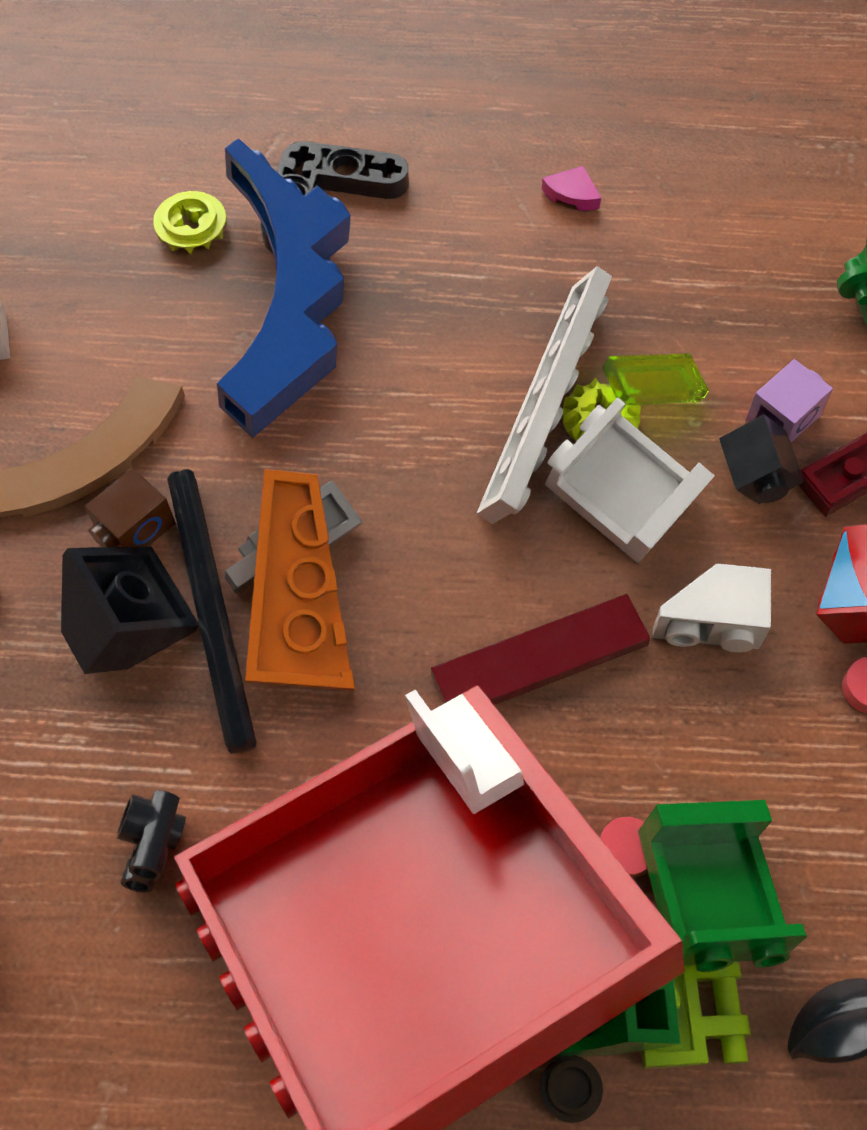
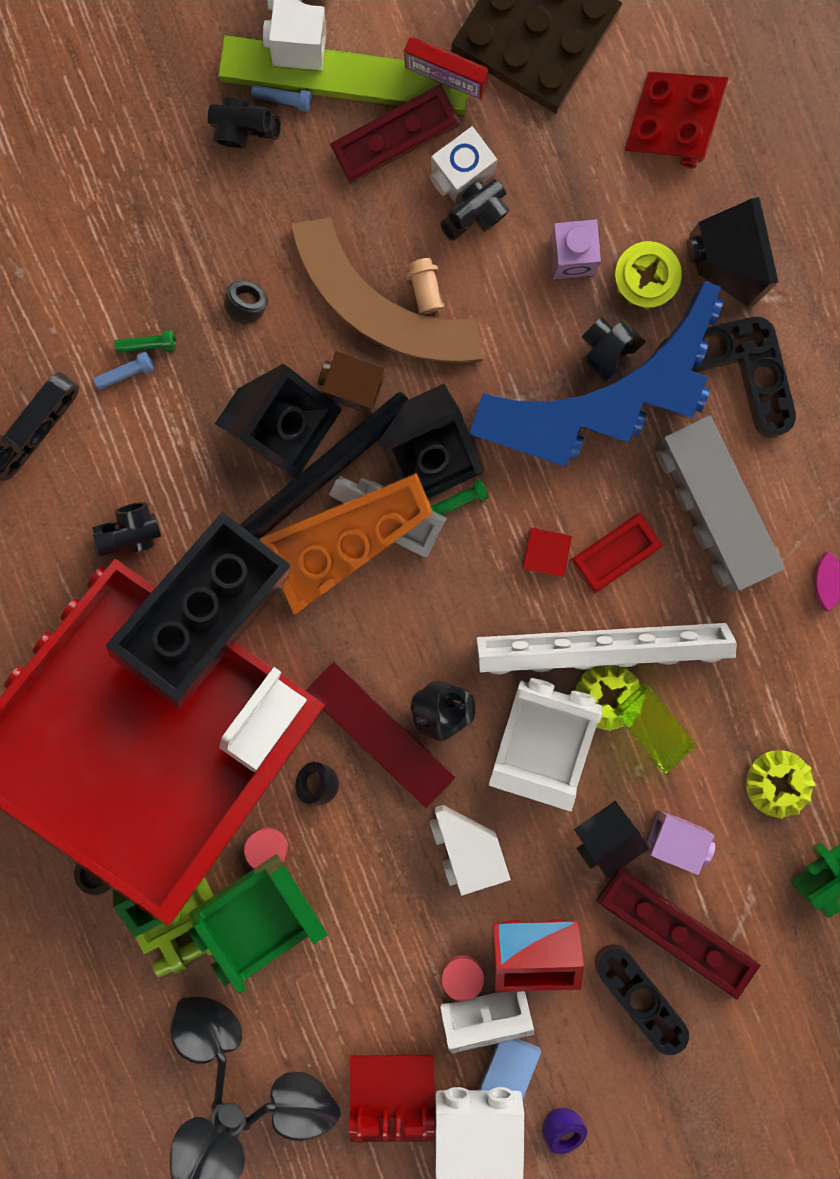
camera: 65 degrees right, 25 degrees up
(26, 328) = (480, 205): none -> black plate
(58, 142) = (677, 116): none -> red hinge
(72, 409) = (425, 286): none -> light nougat pin
(125, 262) = (575, 249): none -> lavender brick
(207, 120) = (735, 252): none -> black slope
(230, 450) = (431, 441): none -> black slope
(239, 268) = (609, 345): none -> black piece
(296, 764) = (199, 610): none -> black brick
(318, 448) = (461, 499): none -> green piece
(418, 411) = (546, 552): none -> red tile
(450, 242) = (719, 505): none -> light grey brick
(452, 352) = (616, 553): none -> red tile
(541, 574) = (437, 712): none -> black piece
(586, 745) = (328, 784): none -> black piece
(761, 316) = (762, 791): none -> neon yellow gear

